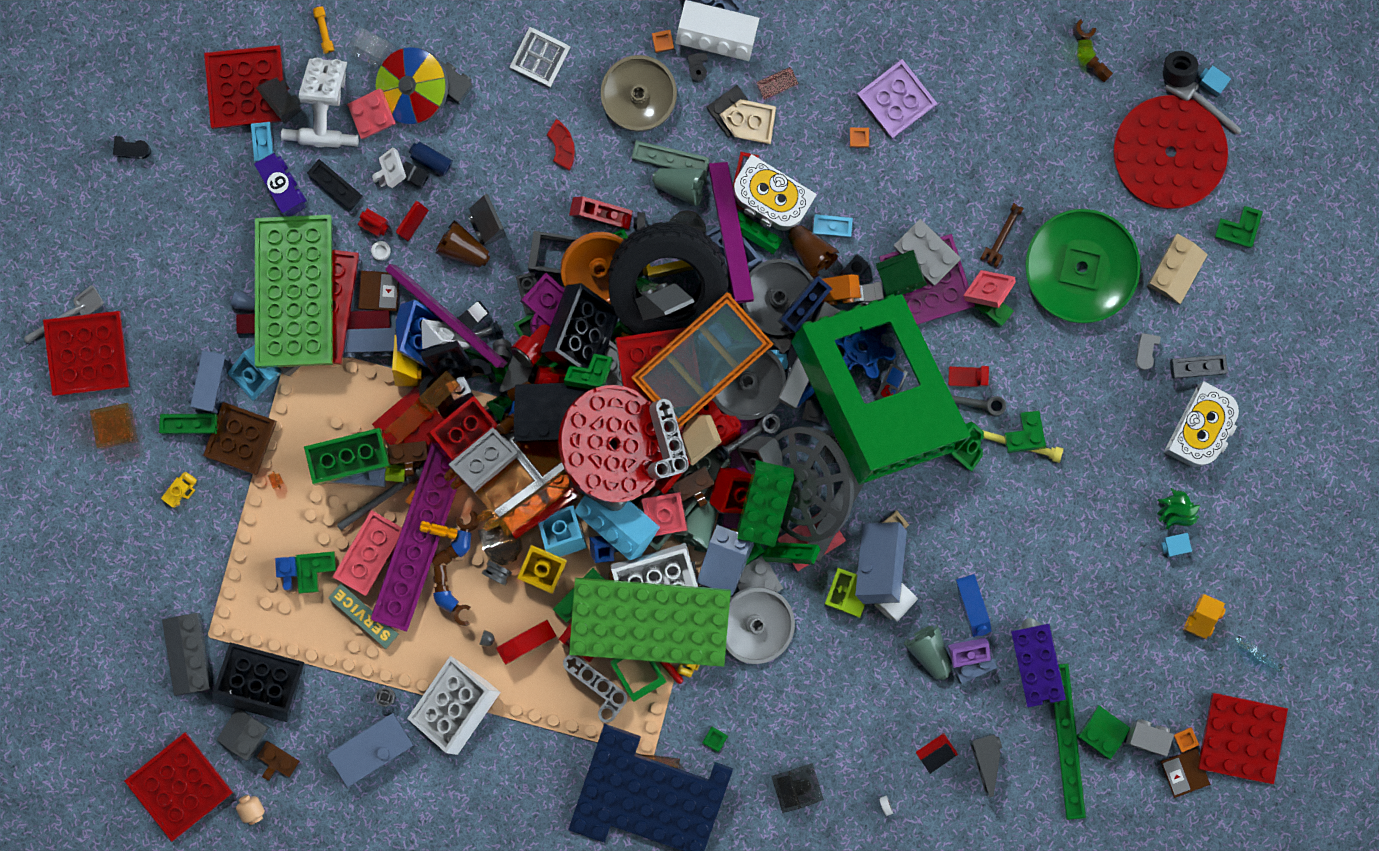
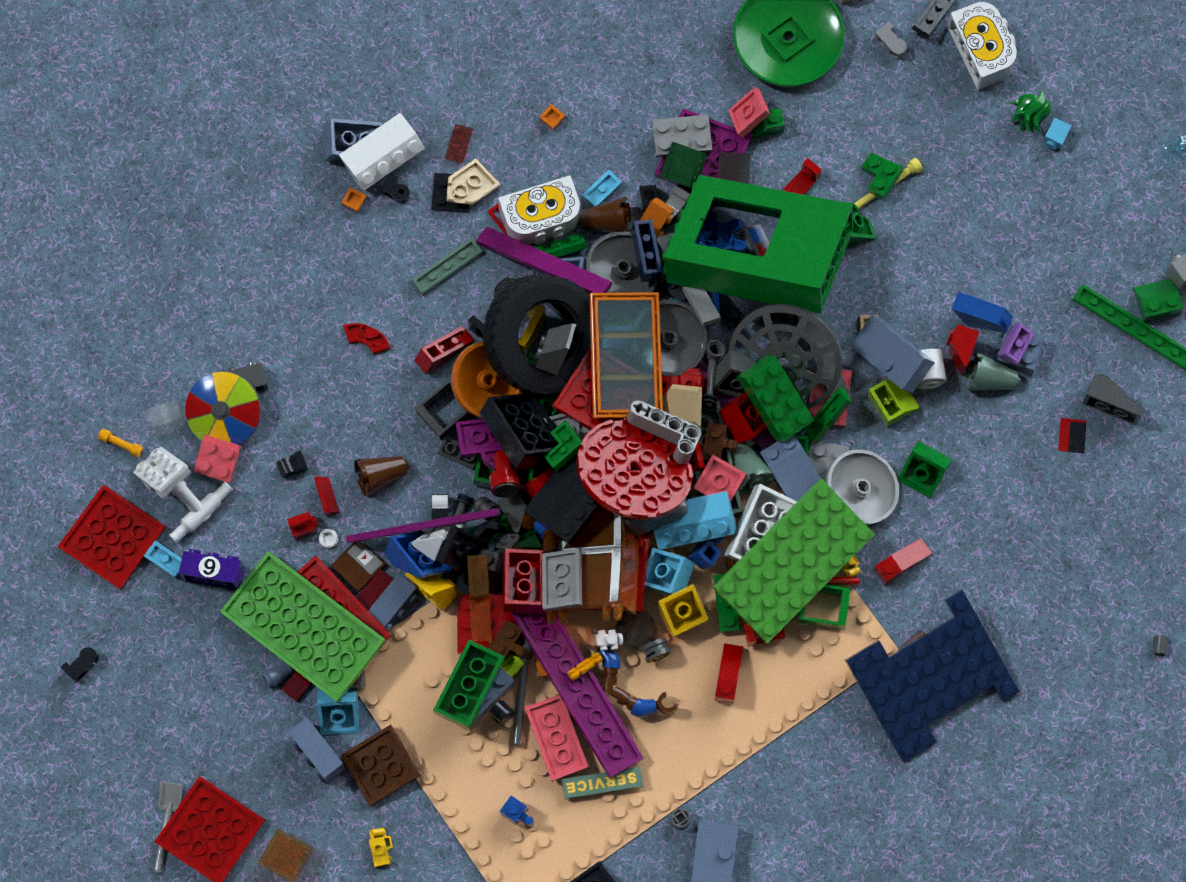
camera: 45 degrees left, 10 degrees down
(188, 424) = (334, 796): green plate -> none
(275, 480) = (437, 763): clear orange plate -> none
(279, 99) = (146, 515): clear smoke slope -> none
(309, 565) = (528, 793): green plate -> none
(334, 184) = (247, 531): black plate -> none
(353, 496) = (501, 713): none -> black leg
(392, 169) = (274, 477): white plate -> none
(430, 158) = (290, 442): dark blue brick -> none
(453, 706) = (732, 770): white slope -> none
(476, 533) = (611, 639): none -> white piece
(484, 391) = (507, 542): none -> dark grey slope
(486, 220) = (376, 435): dark grey slope -> none
(487, 639) = (701, 701): dark grey hinge -> none
(540, 57) = (285, 299): clear piece -> none
(593, 684) = (806, 648): light grey beam -> none
(638, 93) = (378, 247): dark tan dish -> none
(682, 183) = (473, 271): sand green cone -> none
(715, 739) = (924, 592): green tile -> none
(726, 703) = (902, 561): none -> slope
(797, 788) = (1014, 560): clear smoke slope -> none
(812, 661) = (924, 469): none -> green slope
(886, 805) = (1083, 504): white tile -> none
(897, 99) = (547, 67): lavender plate -> none
(934, 315) = (734, 167): none -> clear smoke piece
(934, 611) = (961, 346): none -> red slope
(982, 404) = (835, 185): dark grey piece -> none
(993, 253) = (705, 51): reddish brown hinge -> none
(1038, 663) = (1065, 303): dark purple piece -> none
(1204, 617) = (1130, 155): light orange brick -> none

